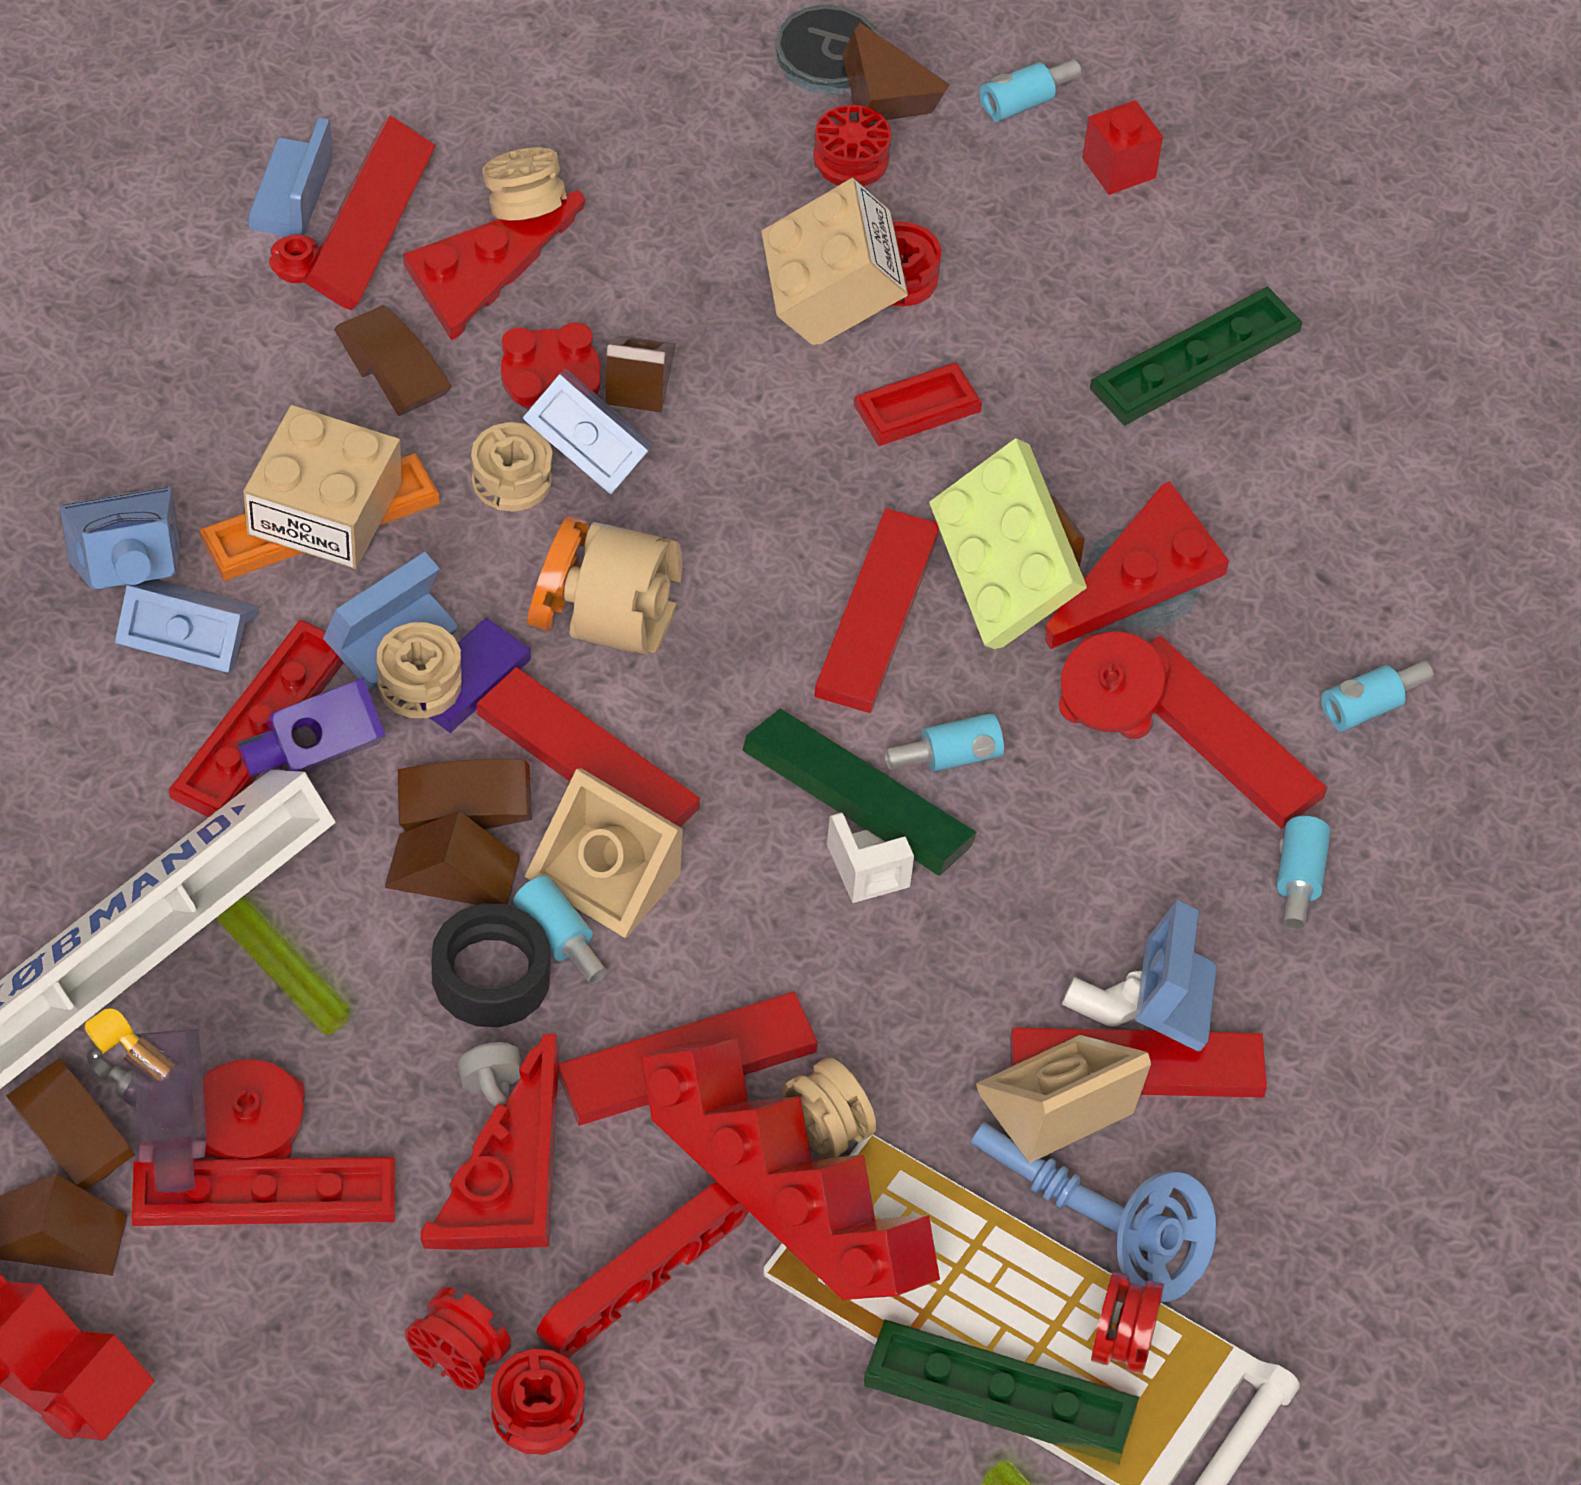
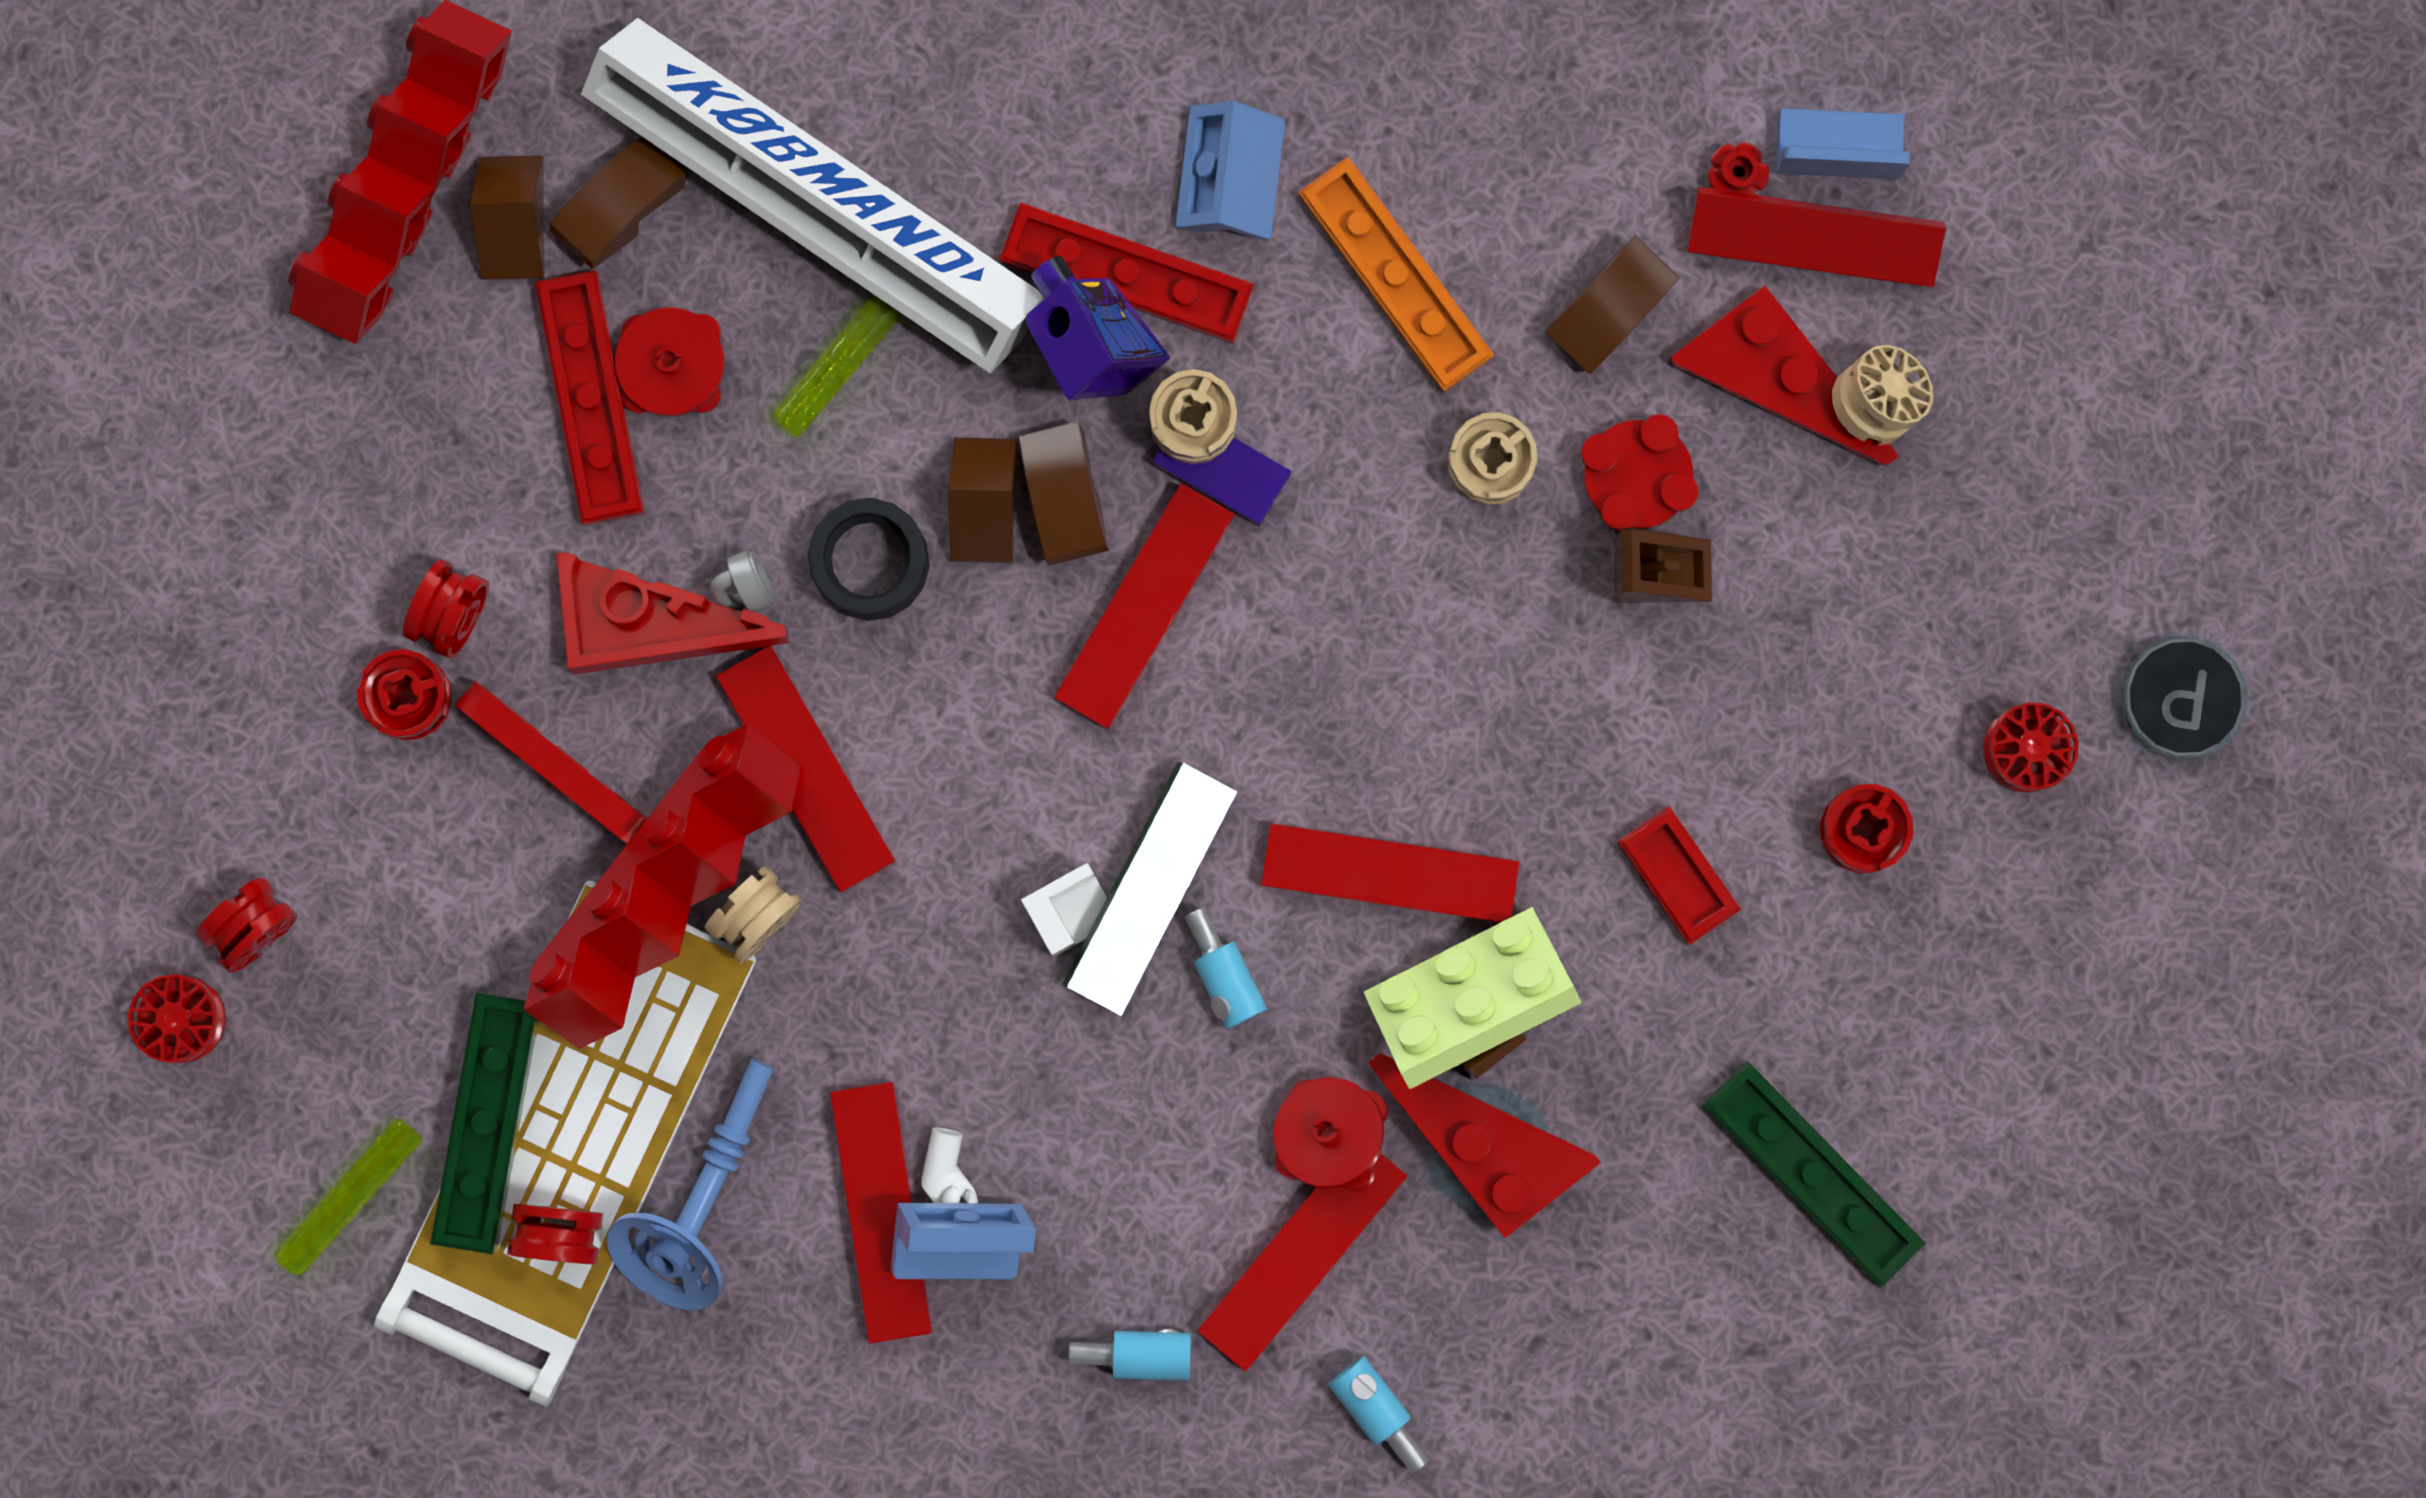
camera: 85 degrees right, 30 degrees up
(122, 537) = (1298, 85): medium blue torso -> none
(162, 1089) = (627, 277): torso -> none
(323, 486) = (1400, 269): tan brick -> none
(390, 603) = (1265, 382): medium blue panel -> none
(551, 583) = (1337, 534): orange tile -> none
(562, 925) = (928, 617): medium azure piece -> none
(587, 431) = (1547, 532): panel -> none
(608, 853) = (1009, 646): tan slope -> none
(623, 589) = (1332, 604): tan brick -> none
(834, 262) = (1822, 754): tan brick -> none
(888, 78) = (2122, 772): reddish brown slope -> none
(1025, 88) = (2168, 933): medium azure piece -> none
(1065, 1093) = (808, 1138): tan slope -> none
(1122, 147) = (2088, 1054): red brick -> none

